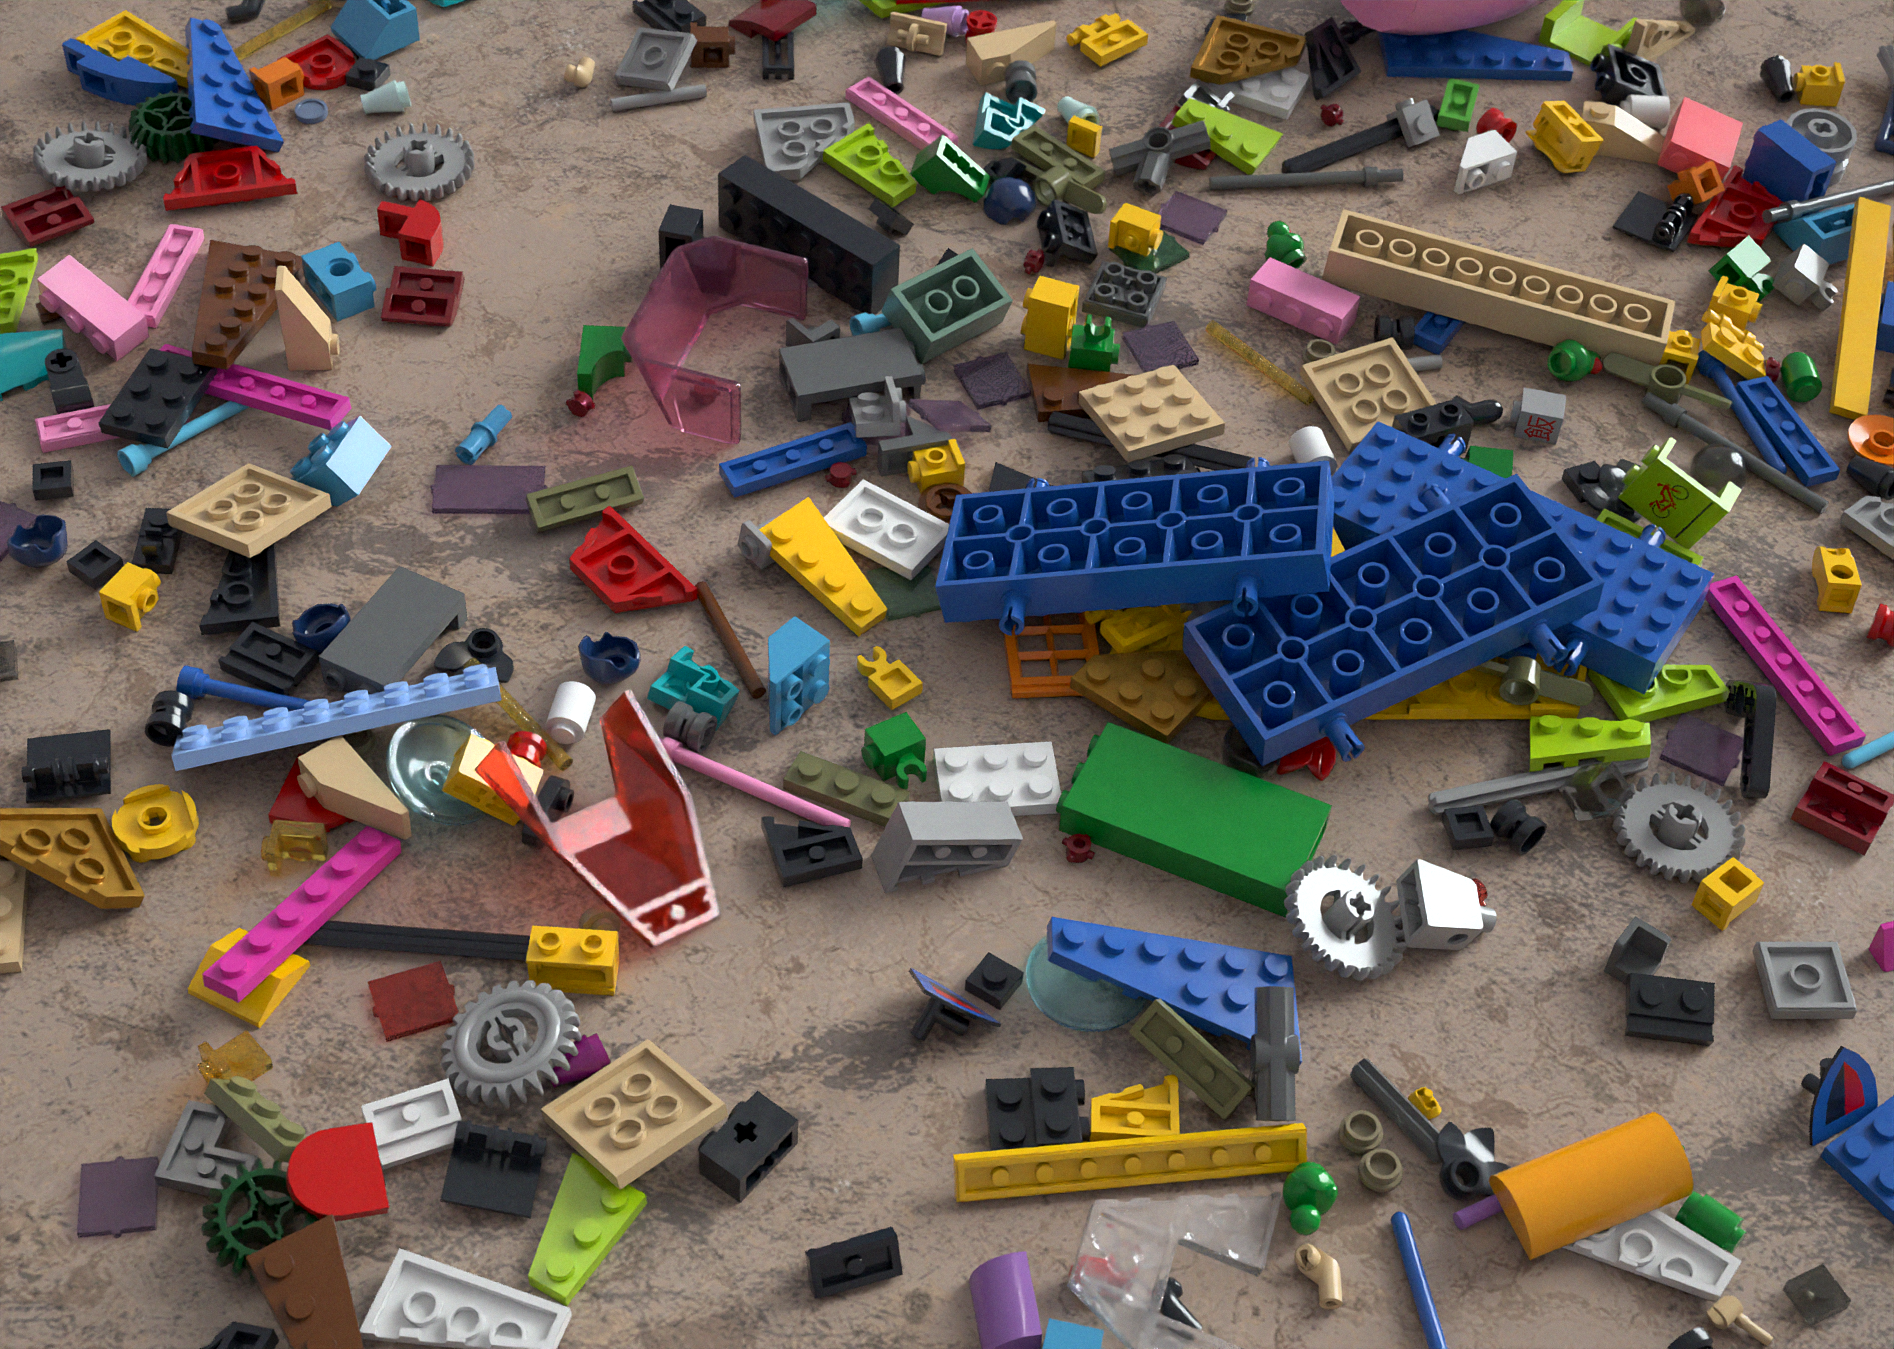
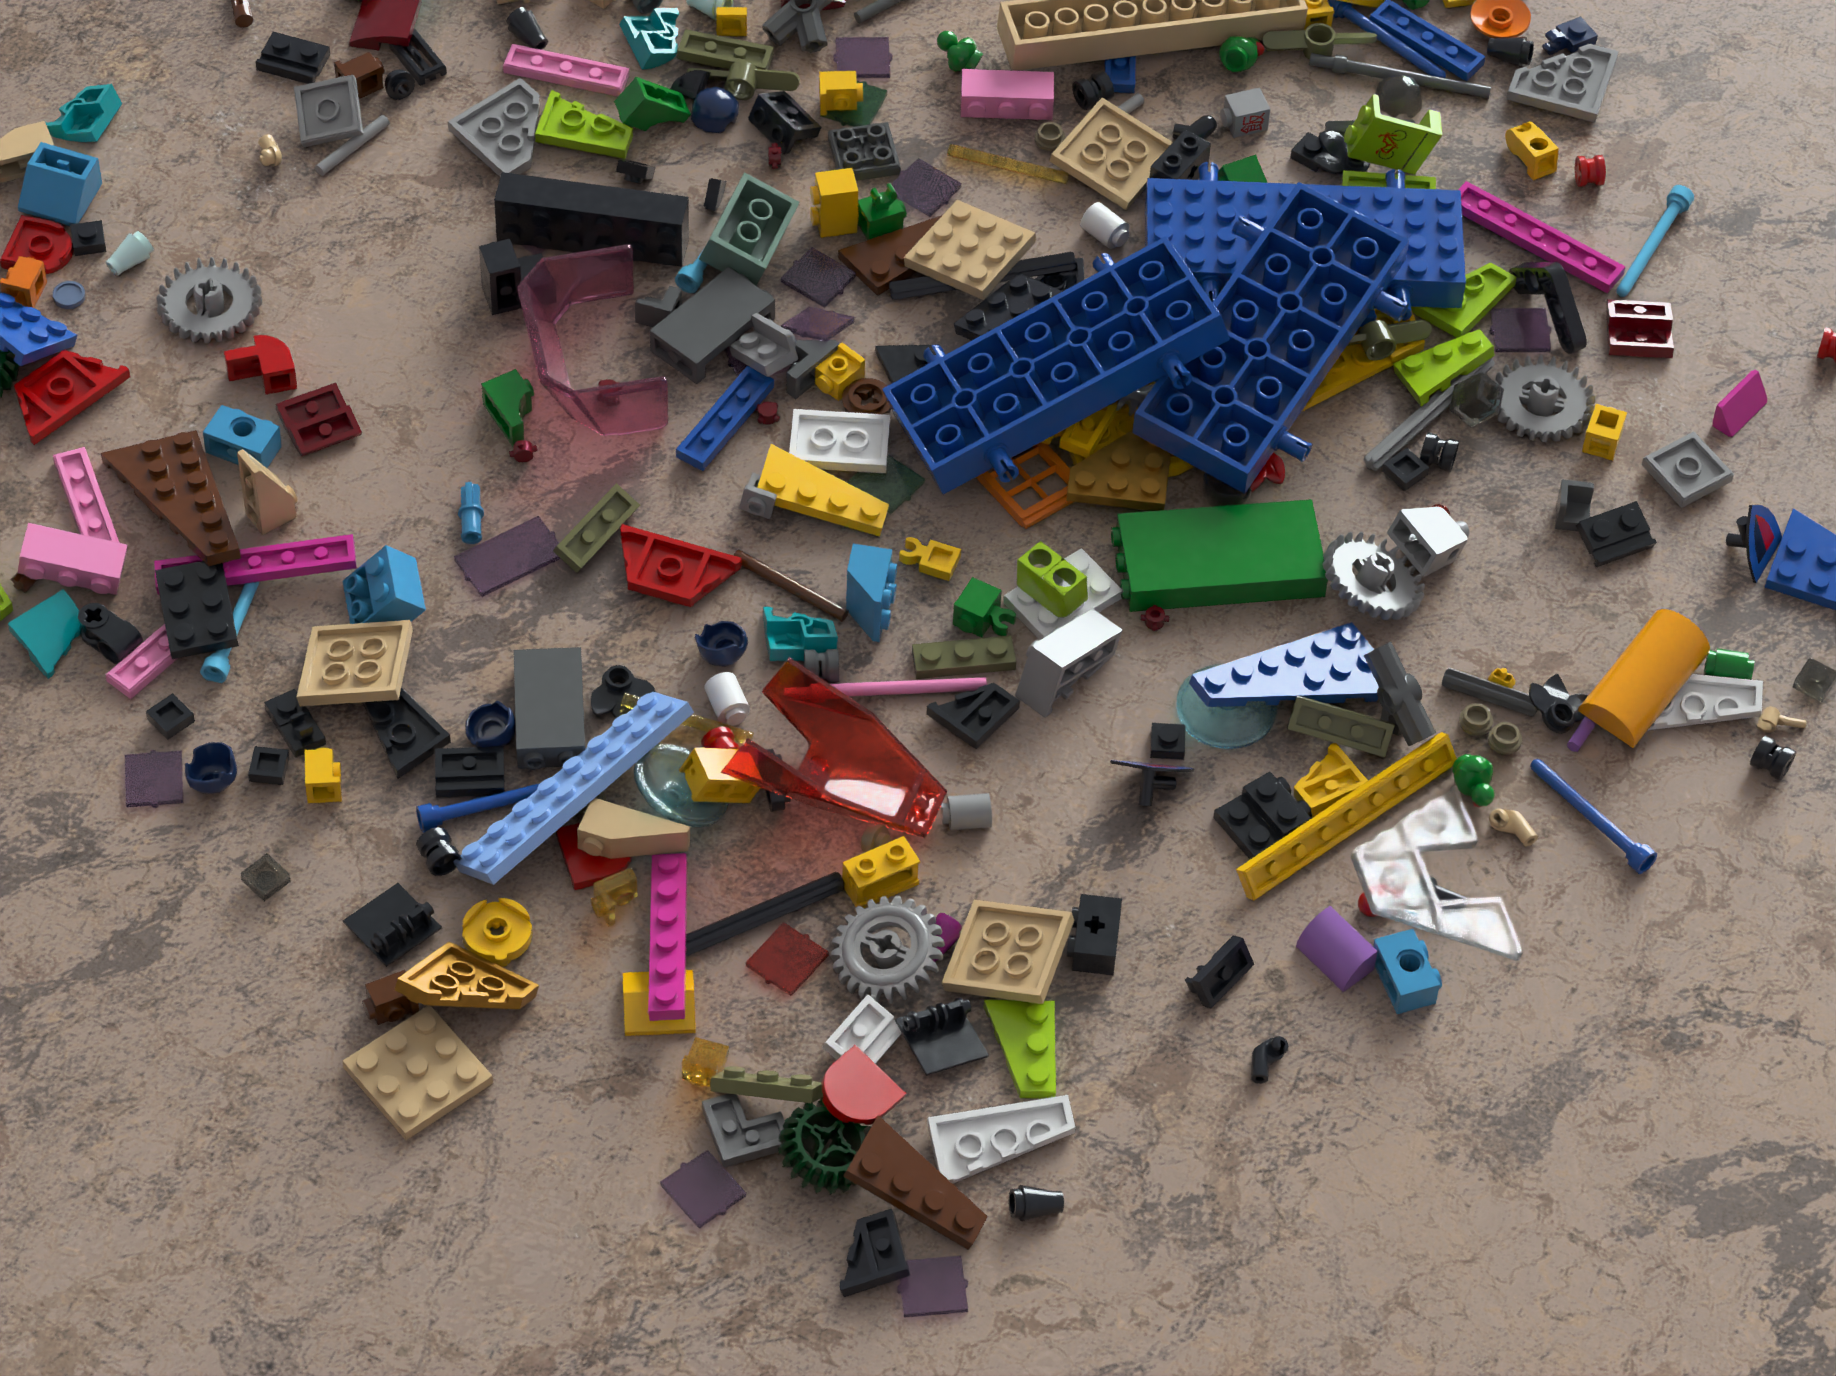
camera: 30 degrees left, 5 degrees up
(717, 944) = (967, 811): none -> light grey brick
(739, 58) = (397, 78): none -> black plate
(982, 778) = (1055, 598): none -> lime piece

